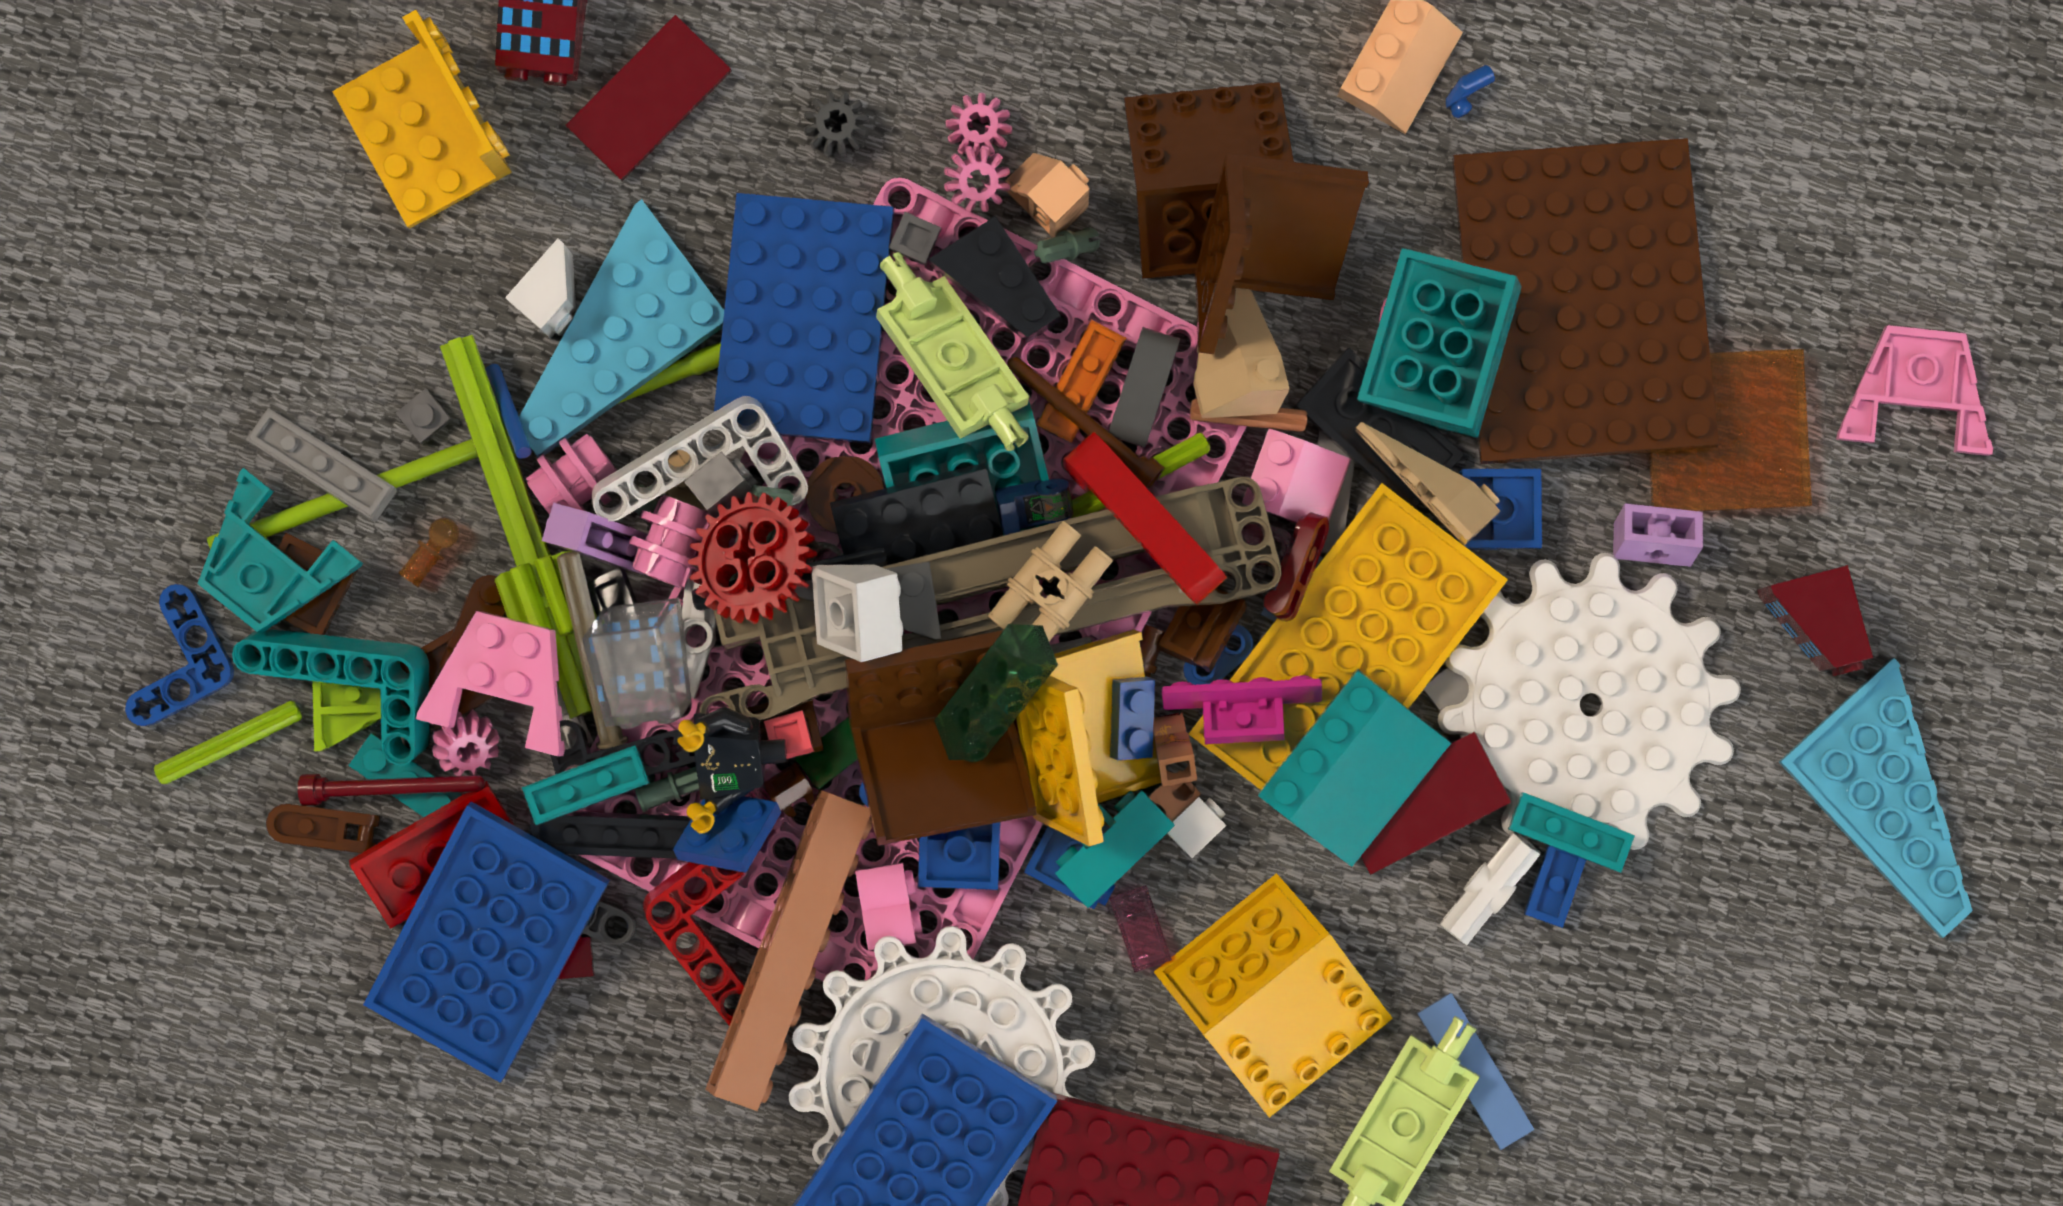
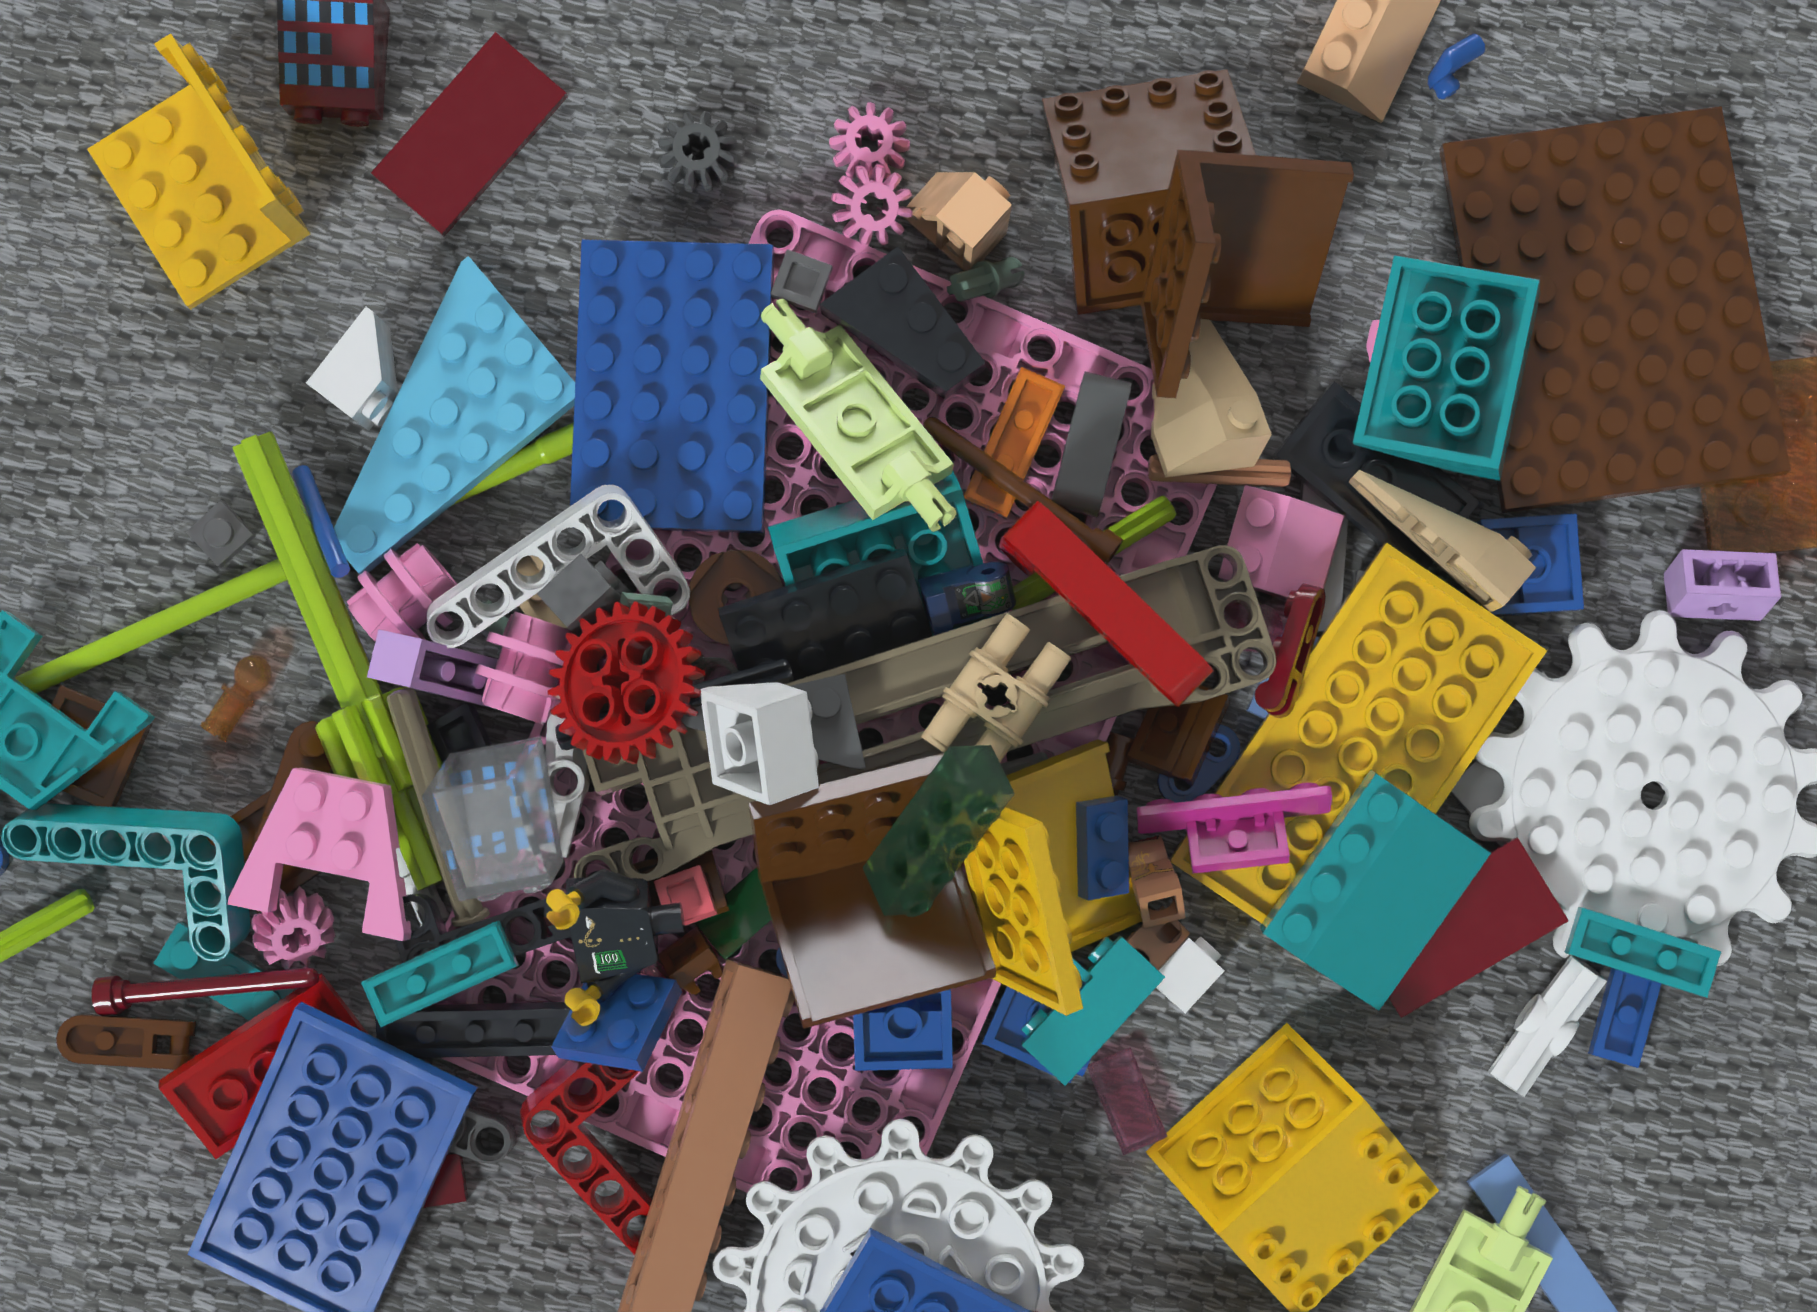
camera: 10 degrees left, 0 degrees up
(321, 465) = (99, 600): light grey tile -> none
(342, 712) = (140, 900): lime wing -> none
(667, 789) = (541, 970): sand green axle -> none
(887, 905) = (817, 1094): bright pink brick -> none

